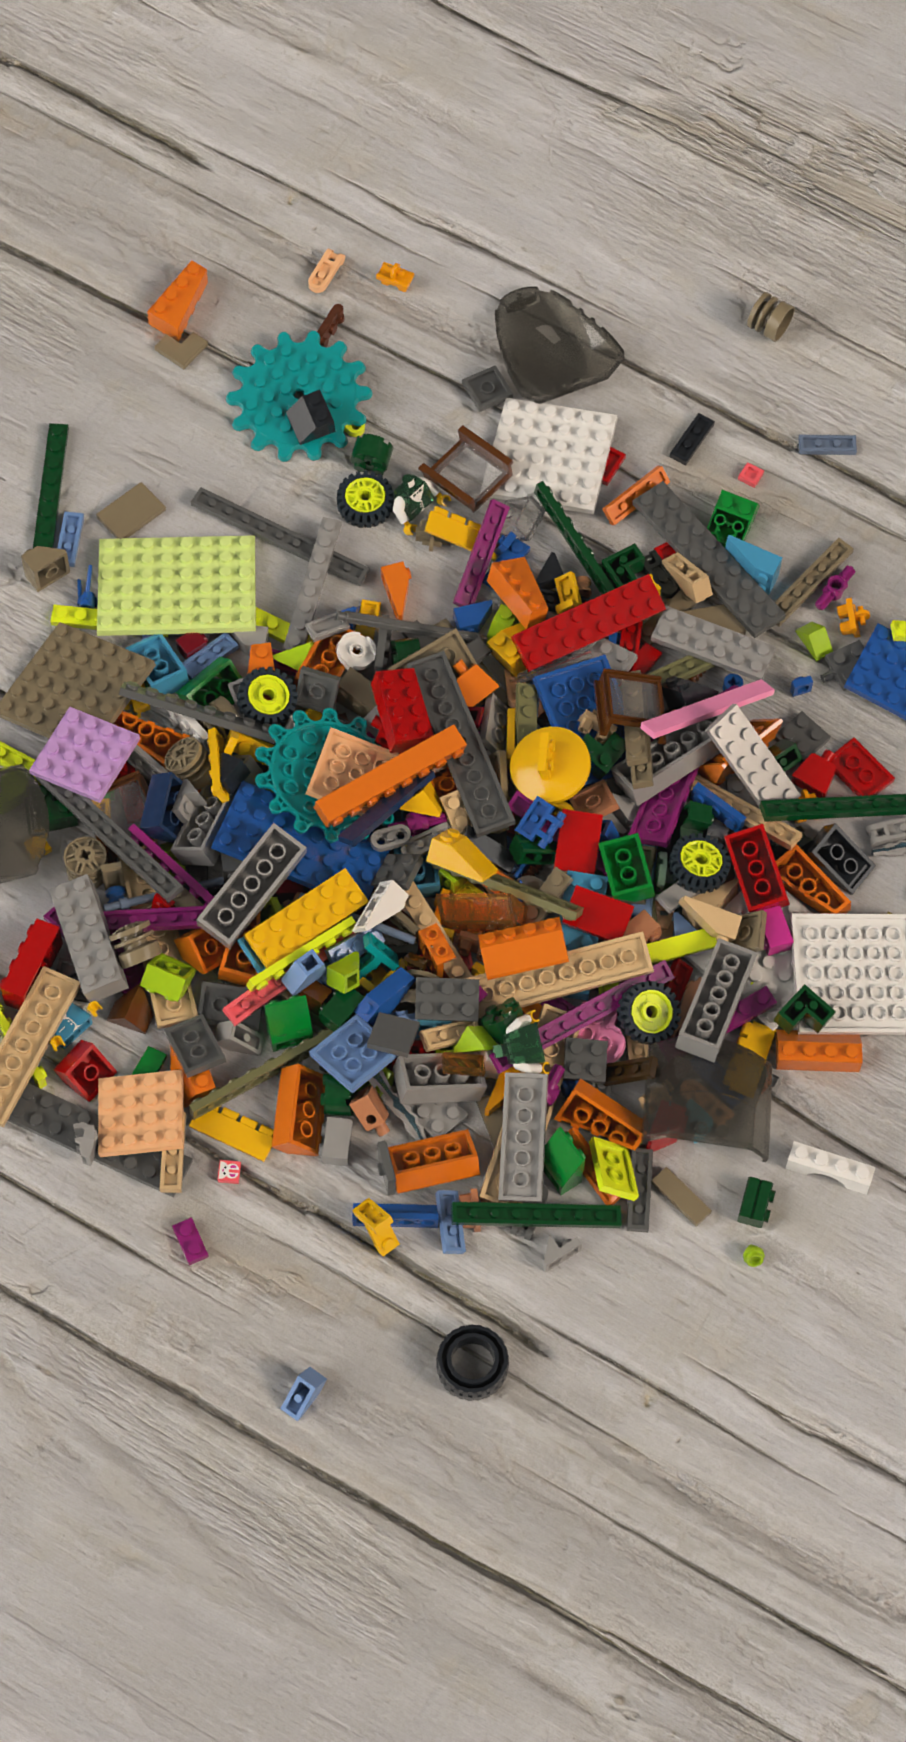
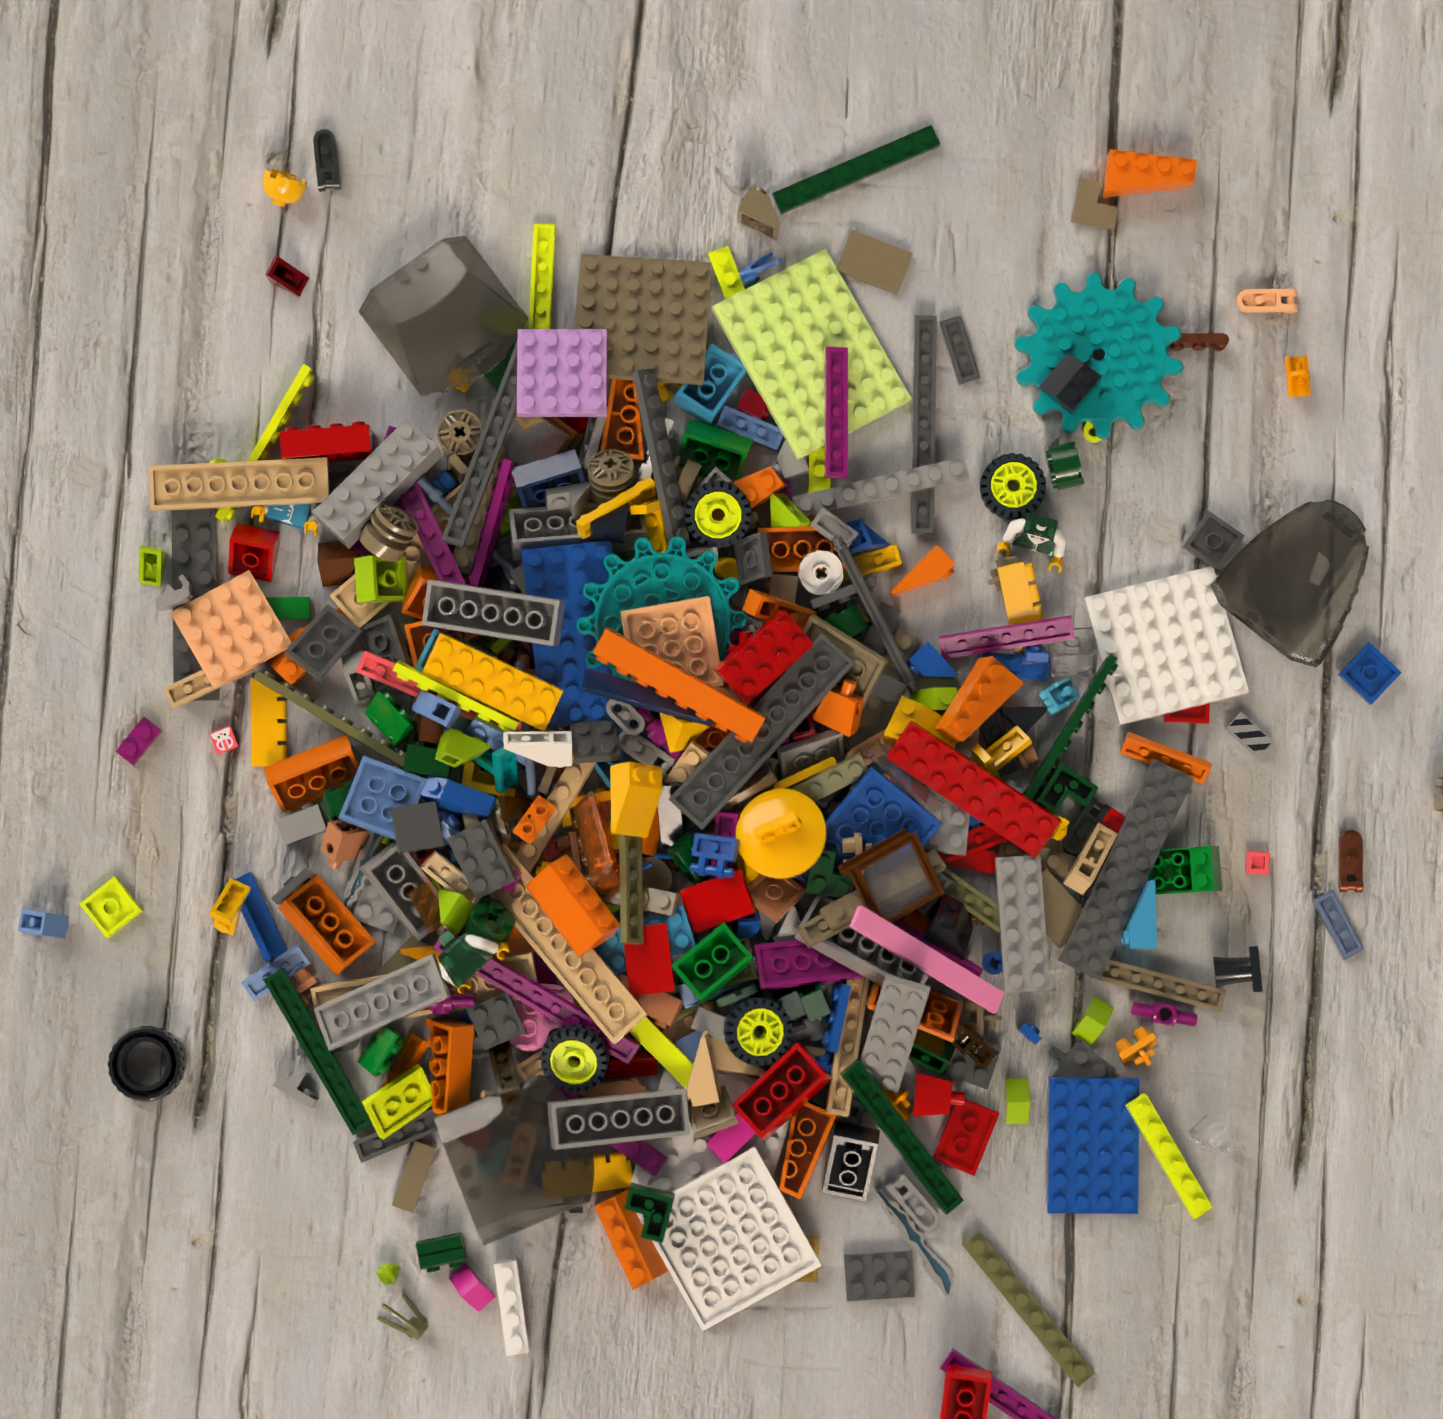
camera: 60 degrees right, 20 degrees up
(47, 1155) = (152, 565): none -> lime slope
(71, 535) = (810, 219): medium blue plate -> none
(235, 583) = (836, 413): none -> magenta plate
(236, 487) = (959, 350): none -> dark grey tile
(320, 1332) = (111, 907): none -> neon yellow tile
(359, 697) = (765, 606): none -> orange slope
(470, 470) = (1097, 574): piece -> none
(547, 543) = (1059, 696): none -> medium azure hand
(647, 335) = (1369, 673): none -> blue plate
(649, 434) = (1249, 735): none -> light grey tile
(692, 439) = (1268, 781): black tile -> none
(763, 710) = (981, 1025): none -> dark tan hips
(783, 414) = (1350, 861): none -> copper plate
(794, 724) = (974, 1045): none -> dark brown slope
(797, 1194) = (471, 1287): none -> dark pink slope
(808, 1253) = (414, 1327): none -> olive plant
(830, 512) = (1239, 970): none -> black plant
(851, 720) = (1017, 1101): none -> lime slope

